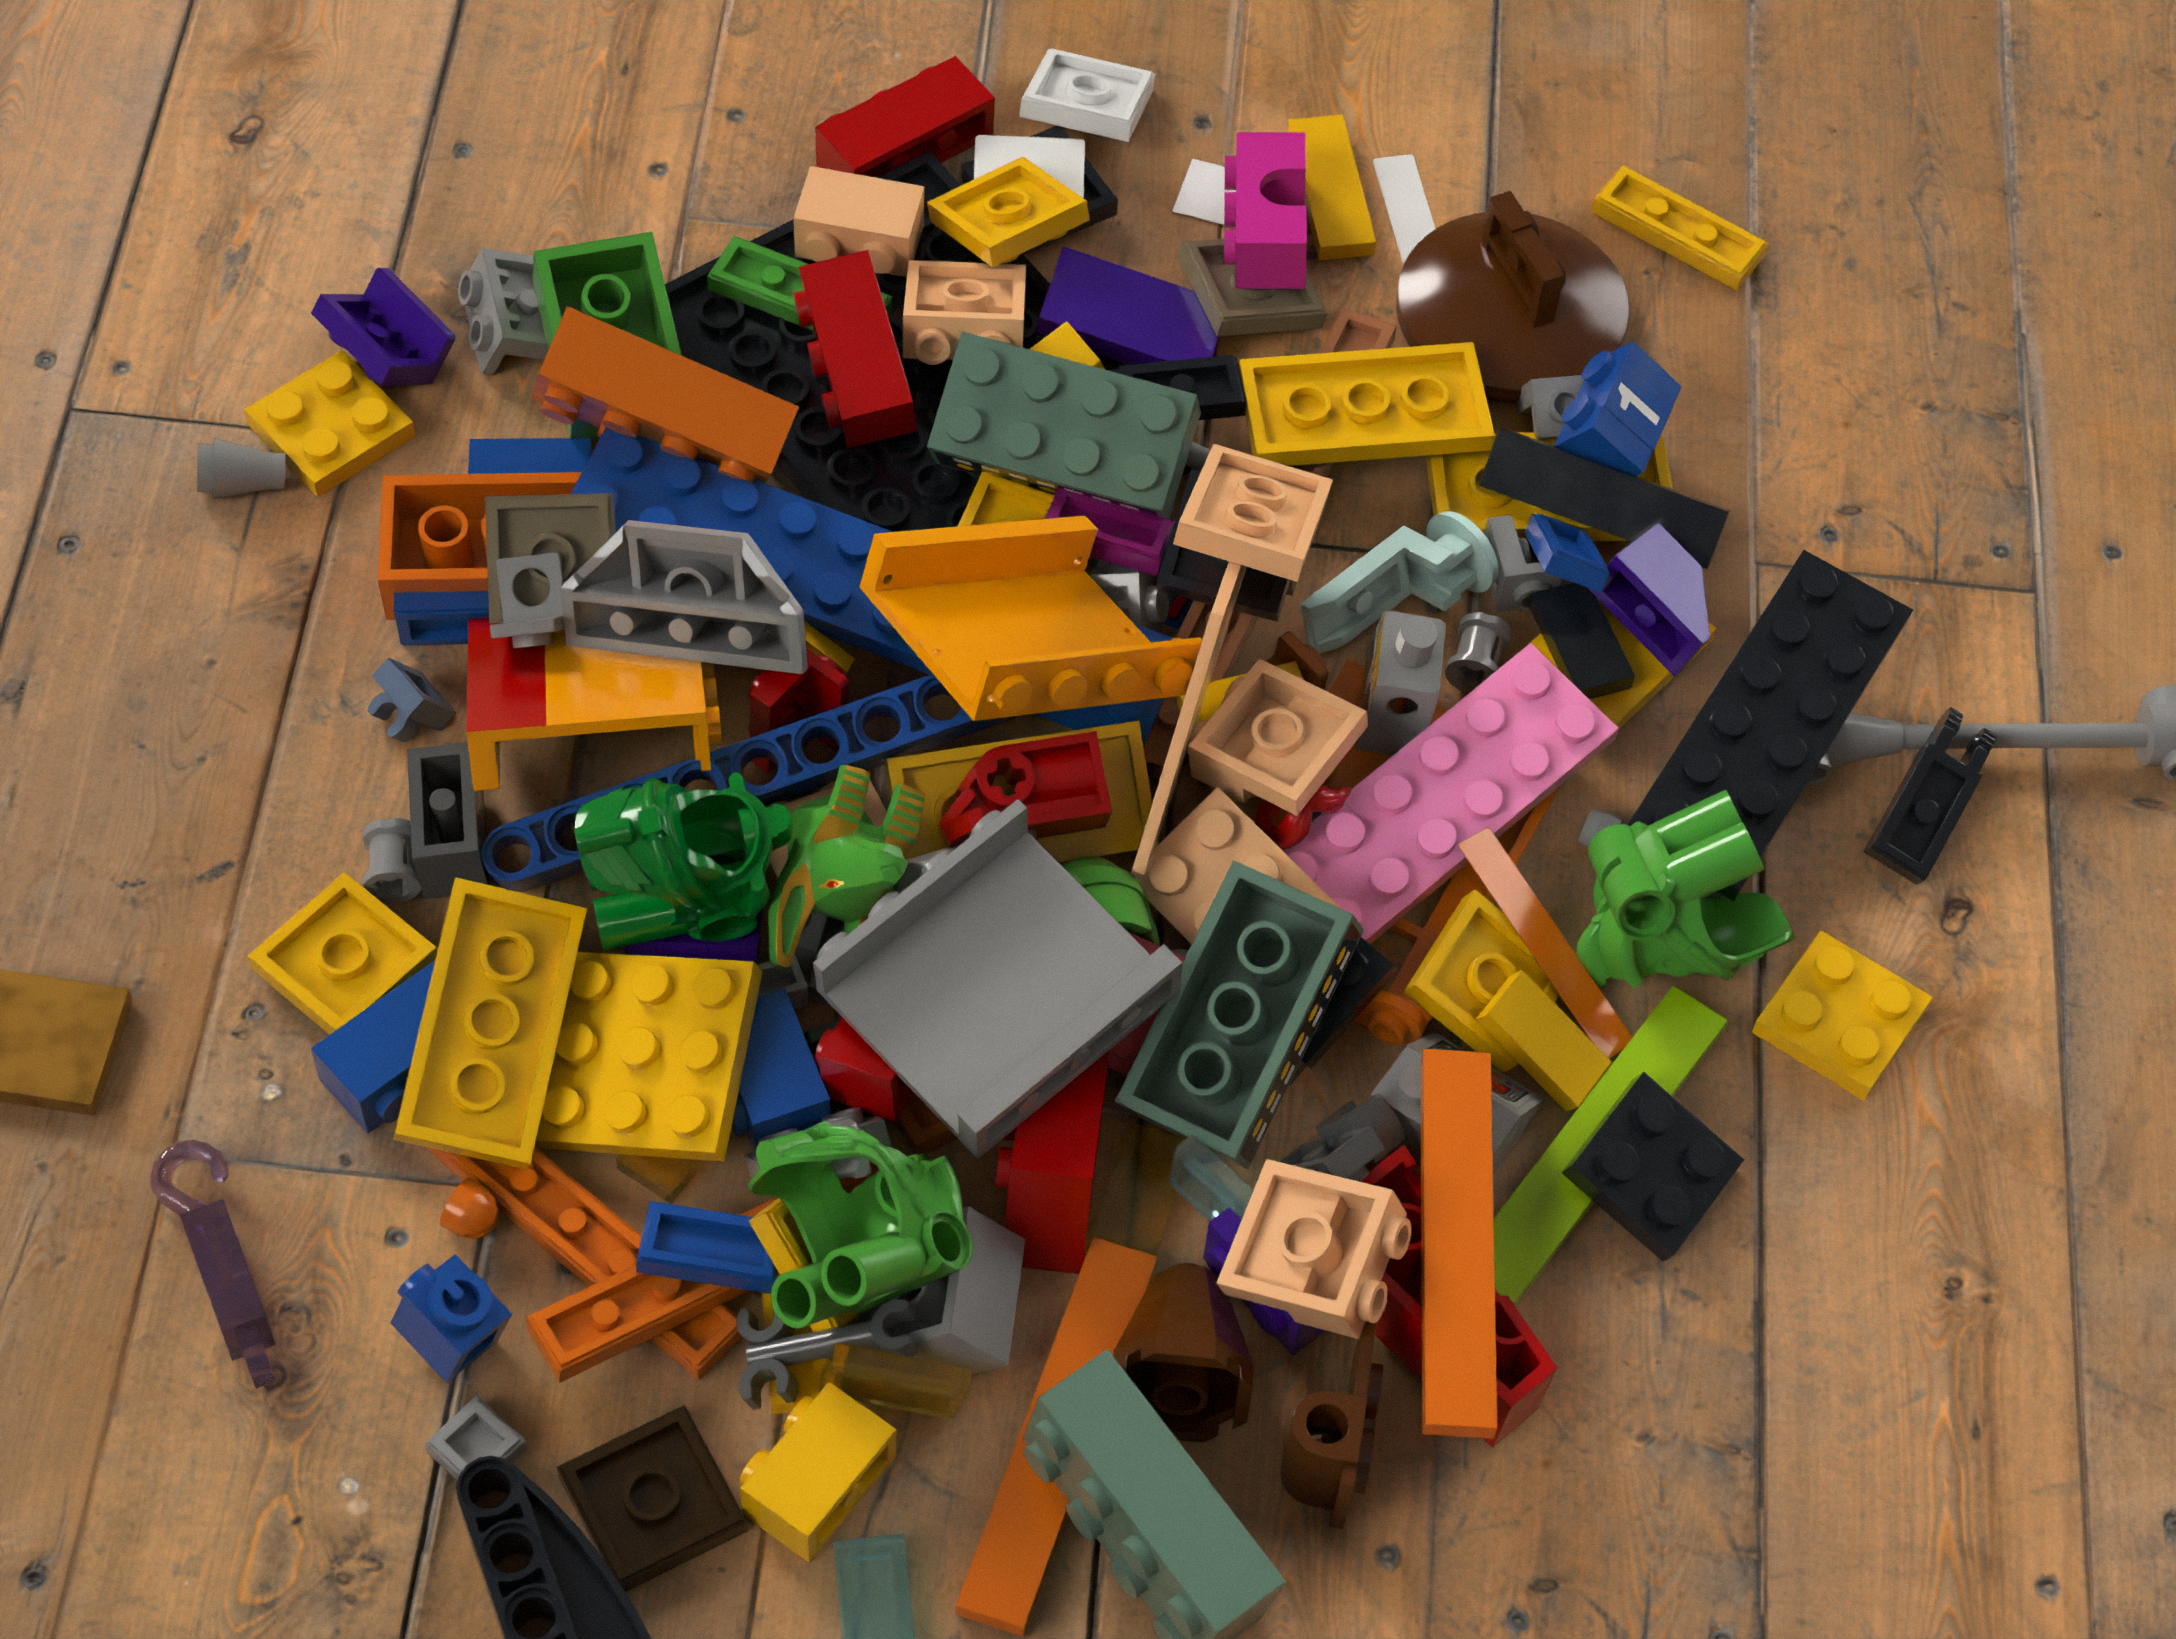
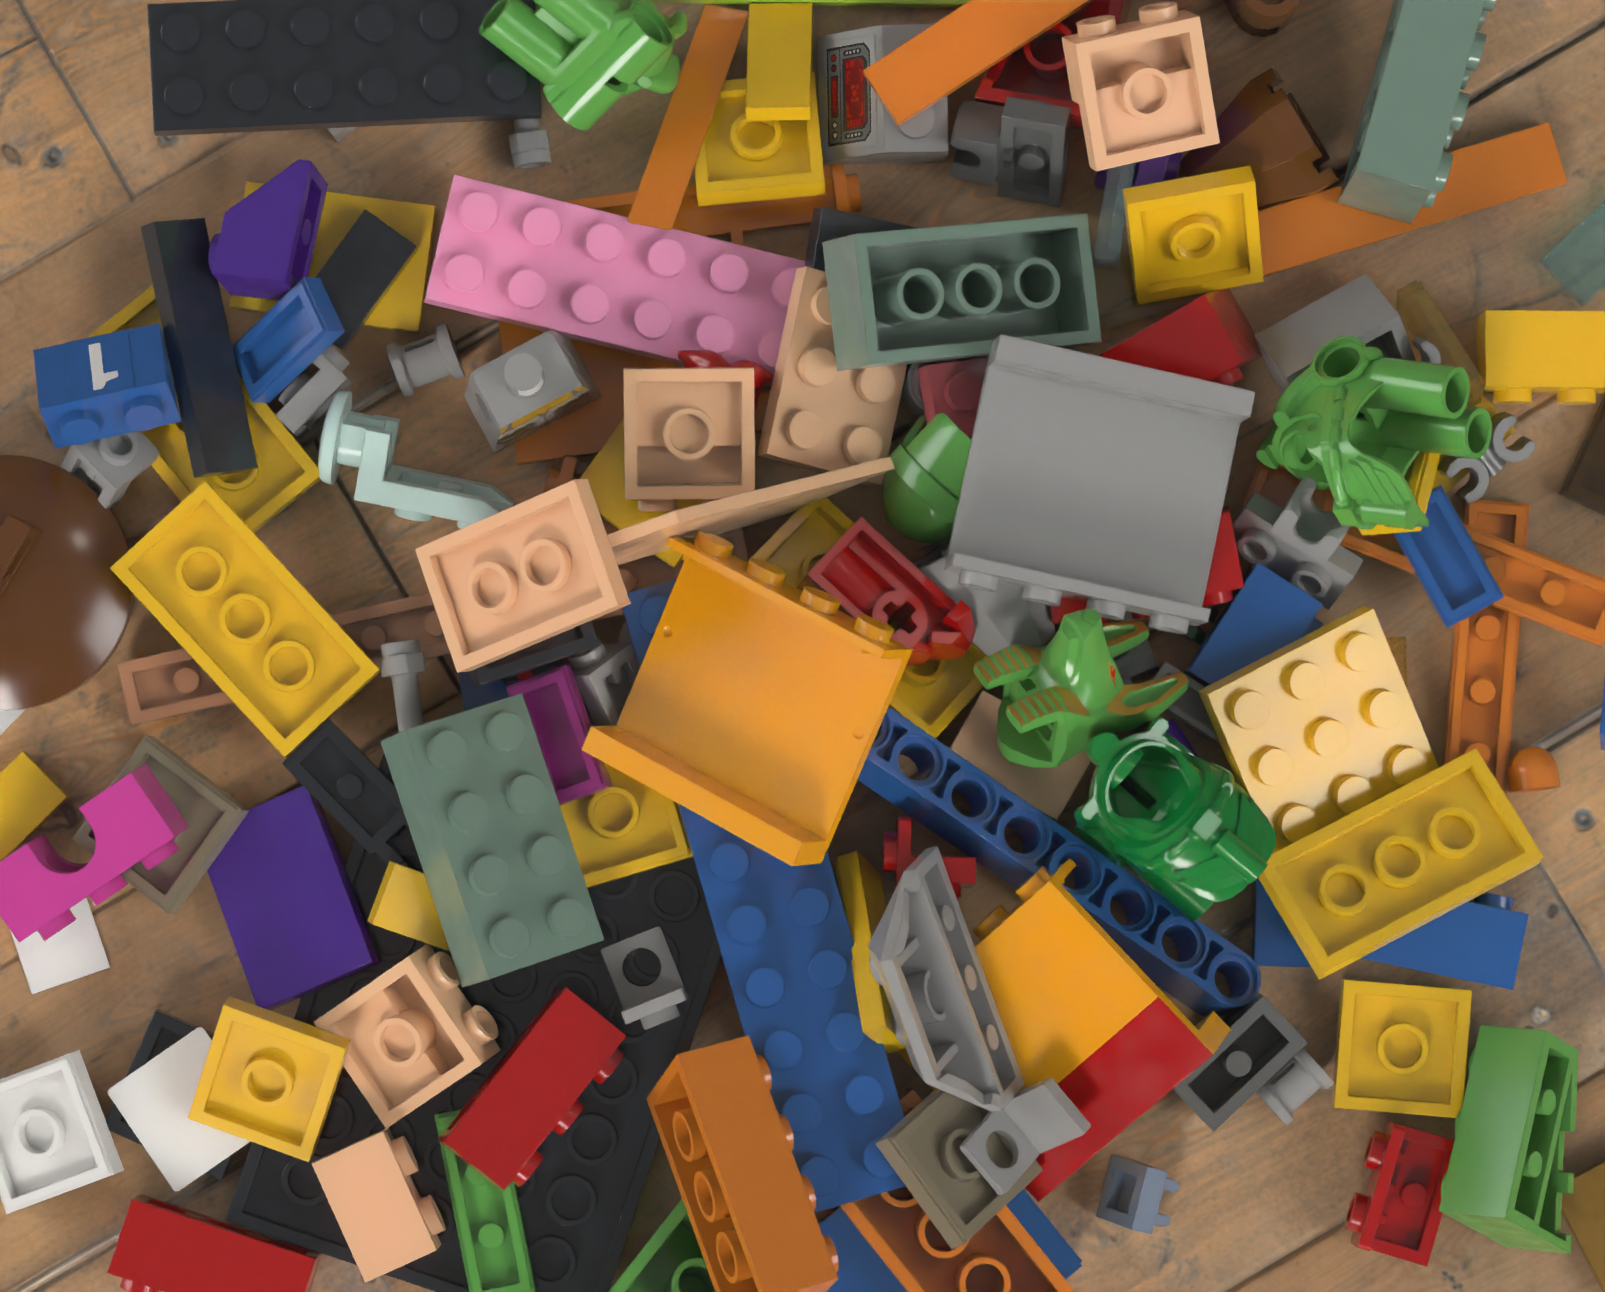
camera: 120 degrees left, 30 degrees up
(192, 965) = (1510, 1139): none -> bright green wedge
(234, 878) = (1402, 1194): none -> red bracket
(855, 475) = (649, 1003): none -> light grey bracket
(1151, 1229) = (1193, 234): none -> yellow plate

